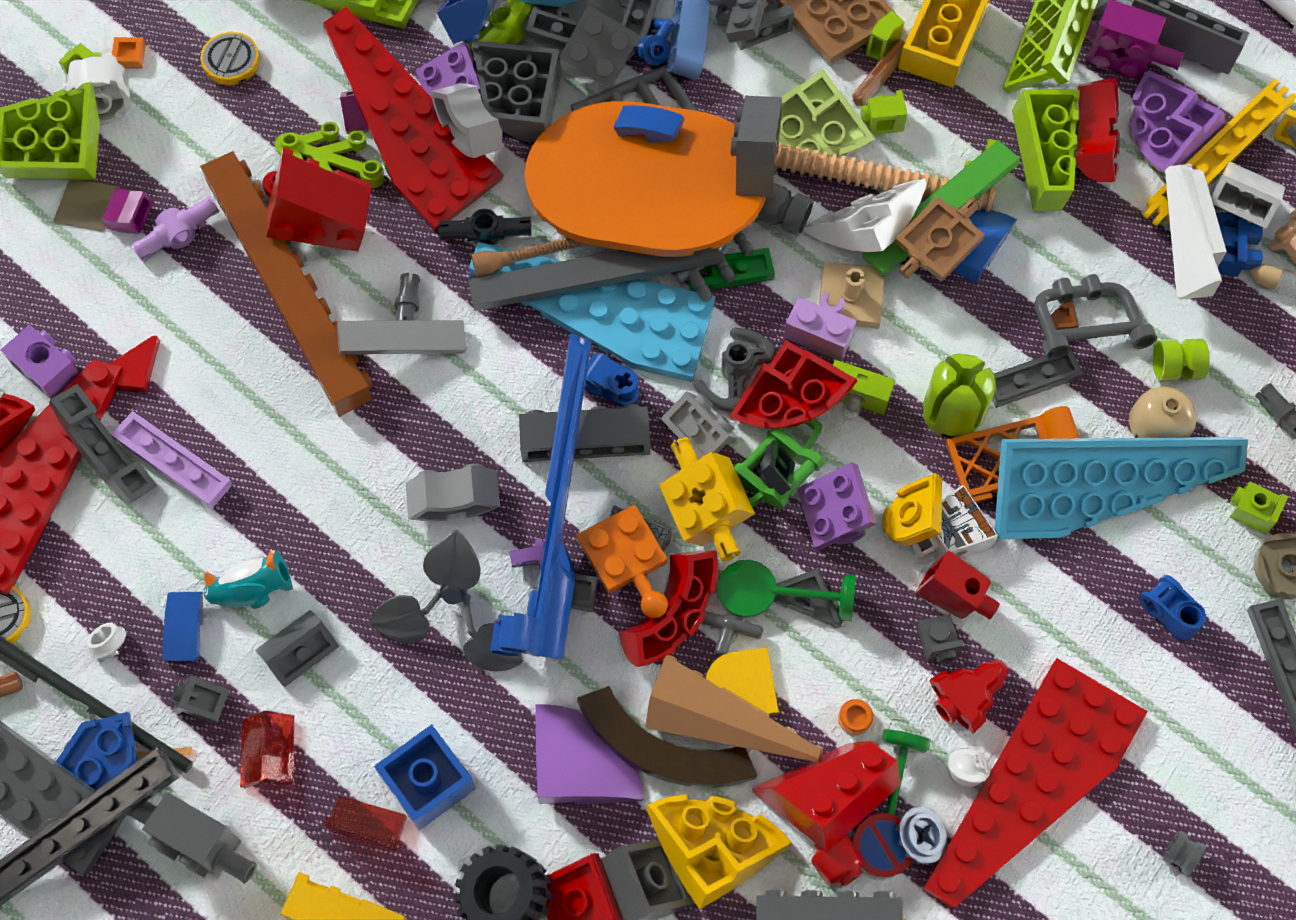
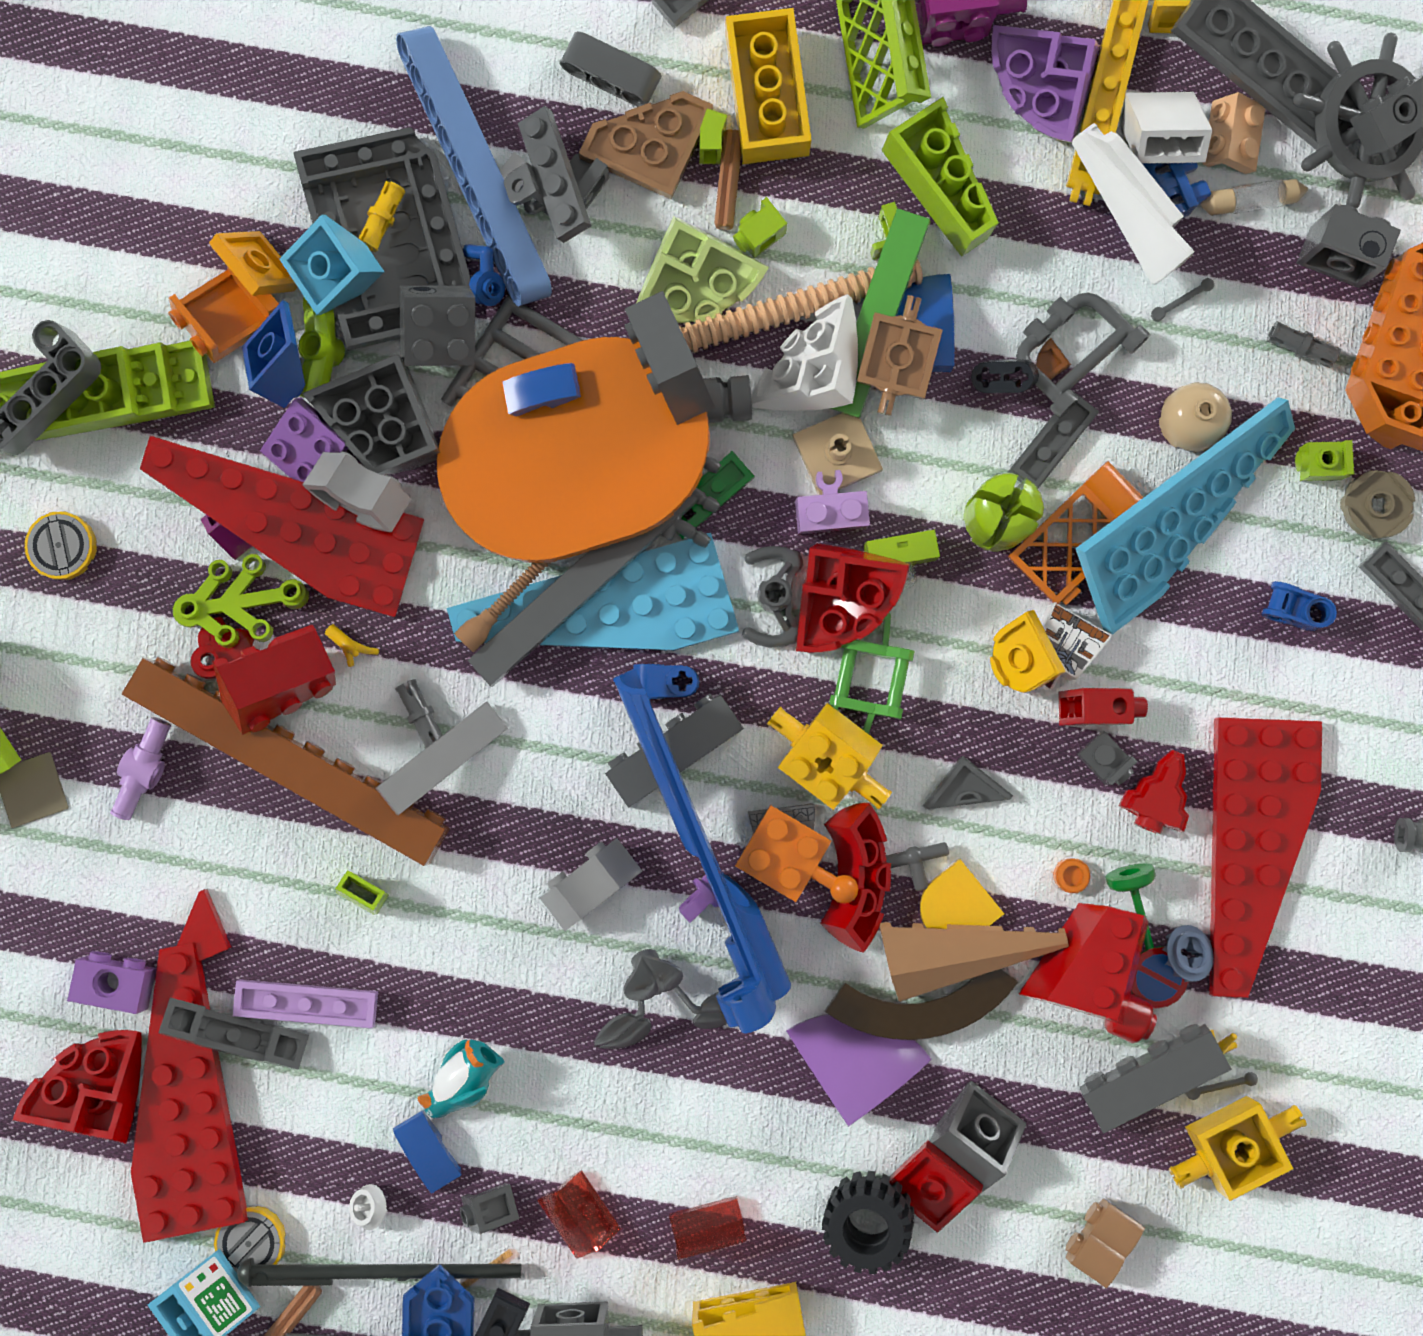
camera: 30 degrees left, 20 degrees up
(127, 211) = (79, 777): magenta piece -> none
(264, 389) = (343, 885): none -> lime piece
(297, 648) = (542, 1109): dark grey panel -> none
(387, 229) = (347, 645): none -> yellow bar
(425, 777) = (737, 1162): blue brick -> none
(471, 227) = (429, 600): black pin -> none
(585, 592) = (767, 902): dark grey tile -> none
(694, 419) = (776, 678): light grey bracket -> none
(714, 843) = (1016, 1063): yellow brick -> none
(750, 589) = (915, 813): green piece -> none
(777, 468) = (876, 686): black plate -> none
(837, 507) = (949, 689): medium lavender plate -> none
(968, 767) = (1195, 866): white hat -> none
(1016, 310) = (1004, 368): none -> black beam
(1097, 138) = (981, 133): red brick -> none
(1173, 331) = (1159, 313): none -> dark grey hinge
(1185, 359) = (1180, 349): lime wheel -> none

